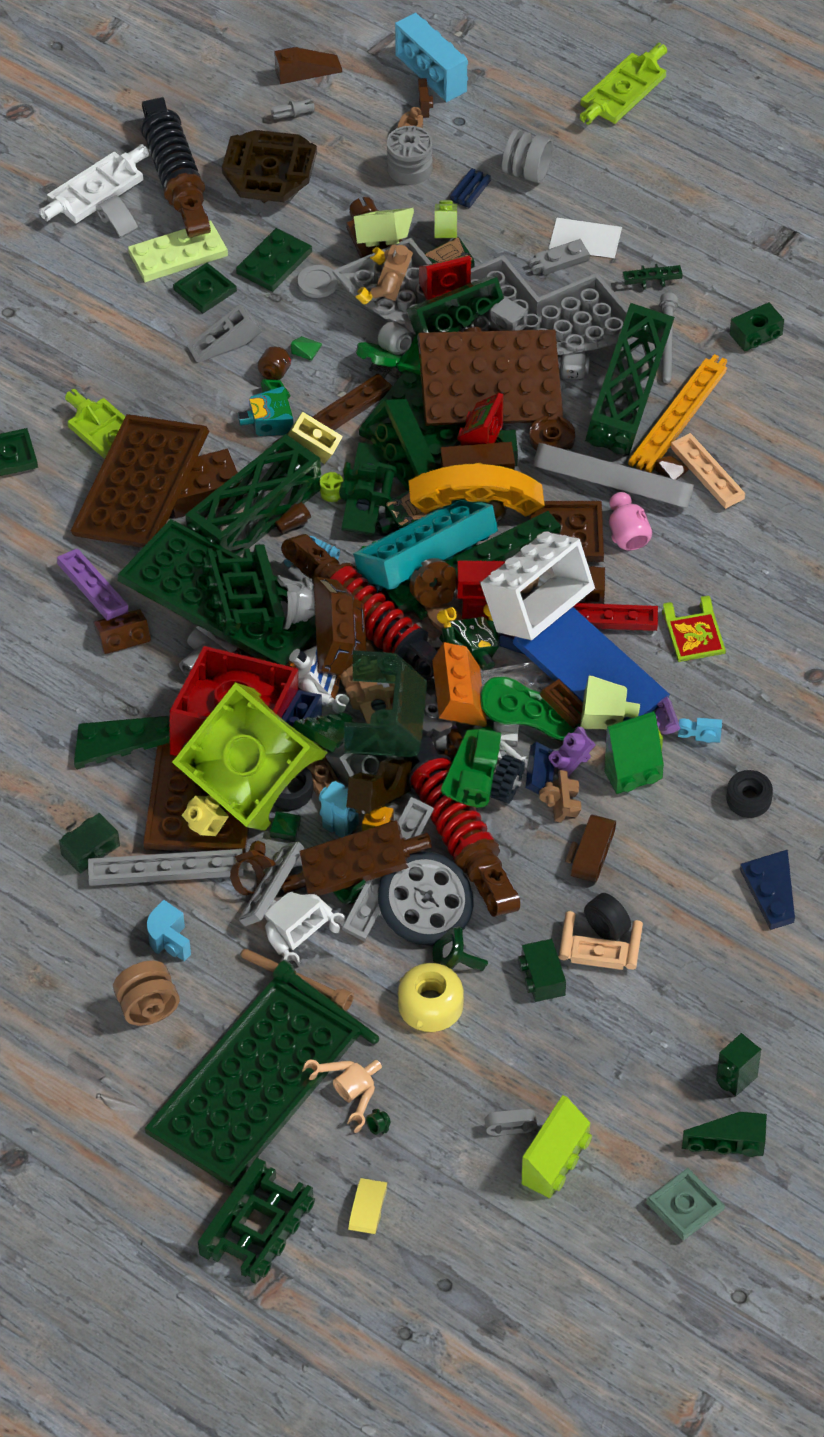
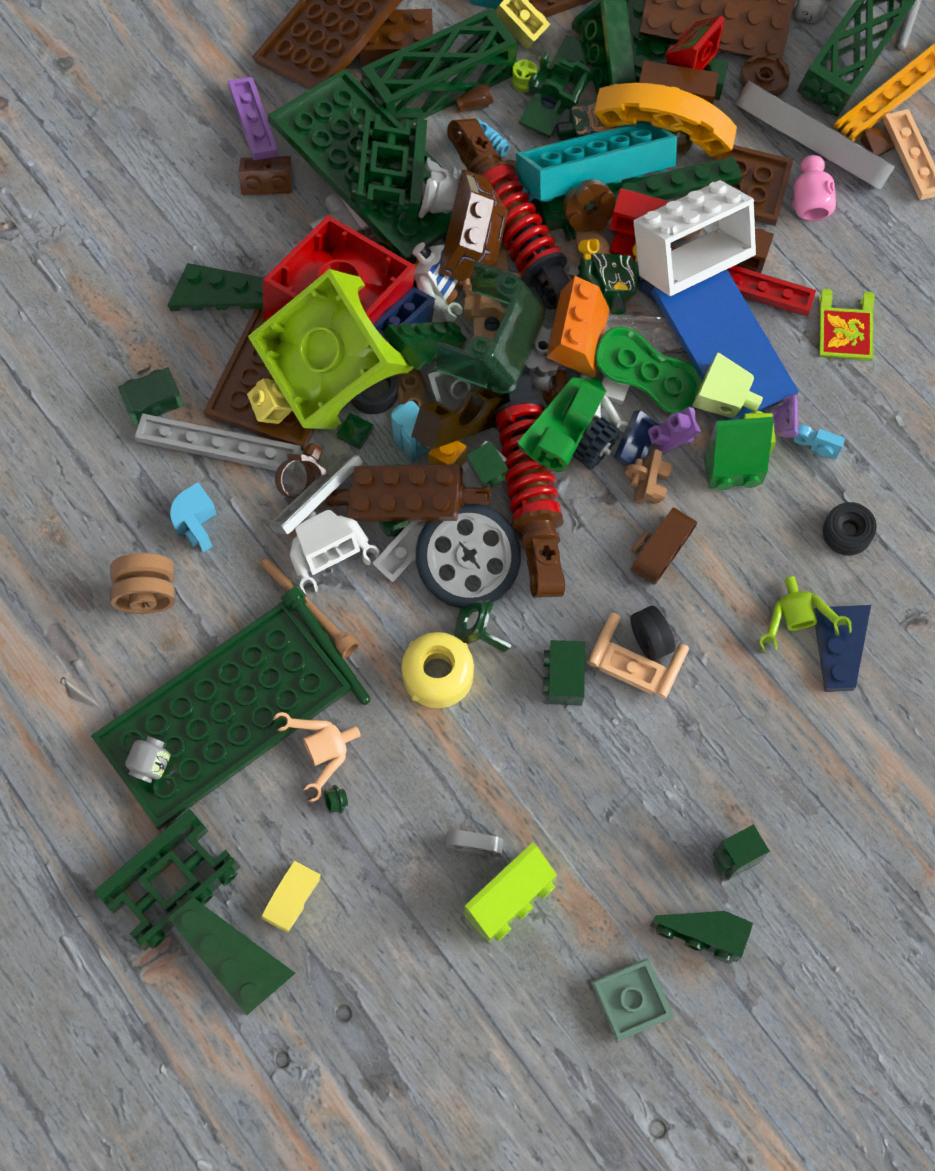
camera: 15 degrees right, 15 degrees up
(205, 1128) = (147, 759): none -> light grey head
(337, 1263) = (233, 958): none -> dark green wing
(419, 815) = (487, 465): none -> dark green brick
(563, 705) = (681, 375): reddish brown tile -> none
(728, 871) = (799, 613): none -> lime piece

